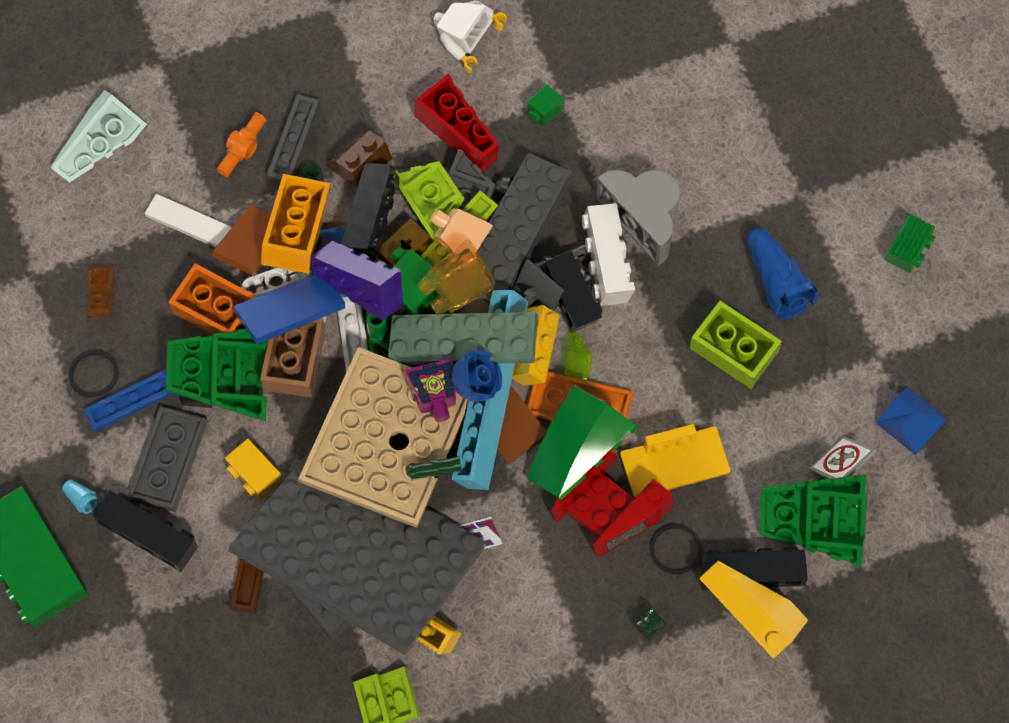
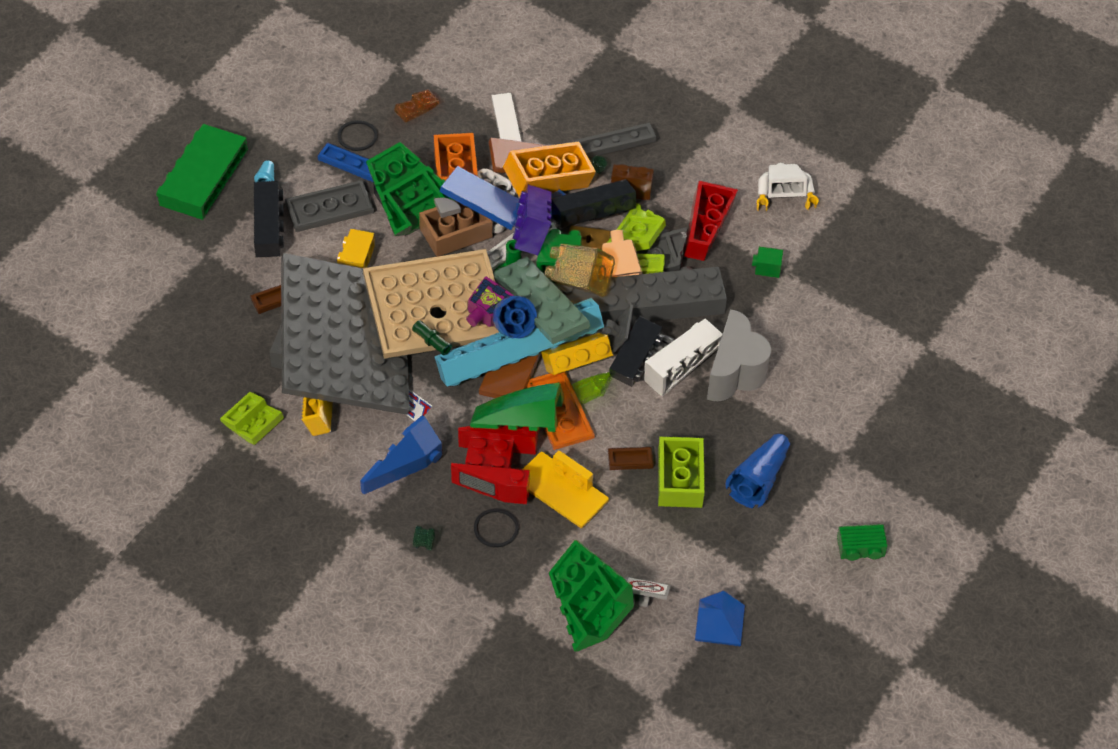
camera: 50 degrees right, 15 degrees down
(100, 132) = (532, 41): light aqua wedge -> none
(241, 144) = (586, 115): orange pin -> none
(275, 349) = (446, 207): none -> light grey tile
(545, 569) = (411, 454): none -> blue wedge
(680, 377) = (630, 458): none -> reddish brown tile
(762, 612) = (483, 597): yellow wedge -> none
(765, 566) = (516, 579): black brick -> none

